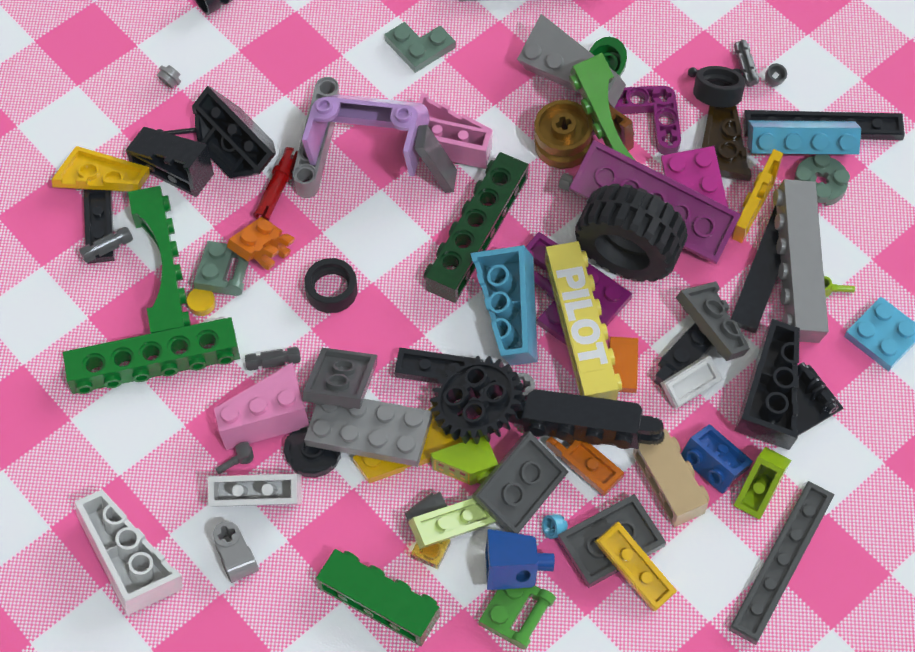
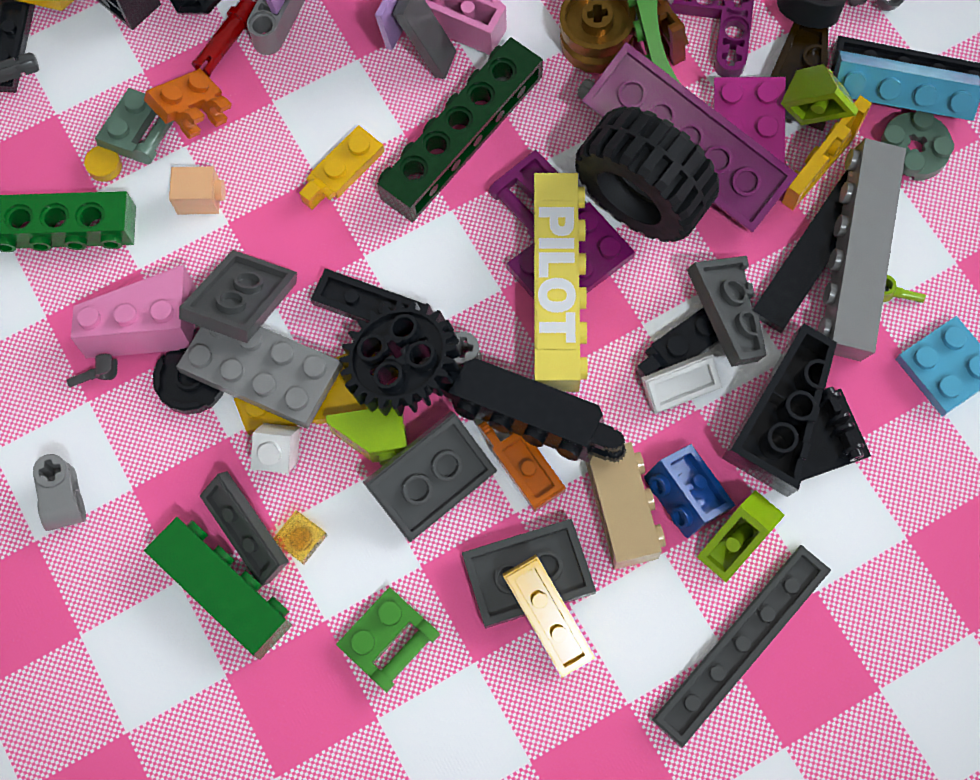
camera: 15 degrees right, 10 degrees up
(150, 212) = (70, 37): green arch -> none
(254, 490) = (100, 420): white brick -> none
(272, 358) = (170, 252): dark grey axle -> none
(283, 308) = (196, 190): none -> light nougat brick
(328, 267) = (255, 149): black tyre -> none
(385, 549) = (244, 528): none -> dark grey tile
(391, 271) = (341, 167): none -> yellow hinge
(396, 485) = (275, 448): none -> white brick
(428, 504) = (309, 486): dark grey cone -> none
(449, 522) = (326, 511): yellowish green plate -> none
(510, 299) = (475, 235): medium azure wedge -> none
(513, 560) = (395, 577): blue torso -> none
(554, 525) = (461, 538): medium azure hinge -> none
(626, 361) = (603, 341): orange tile -> none
(741, 156) = (817, 96): none -> lime slope

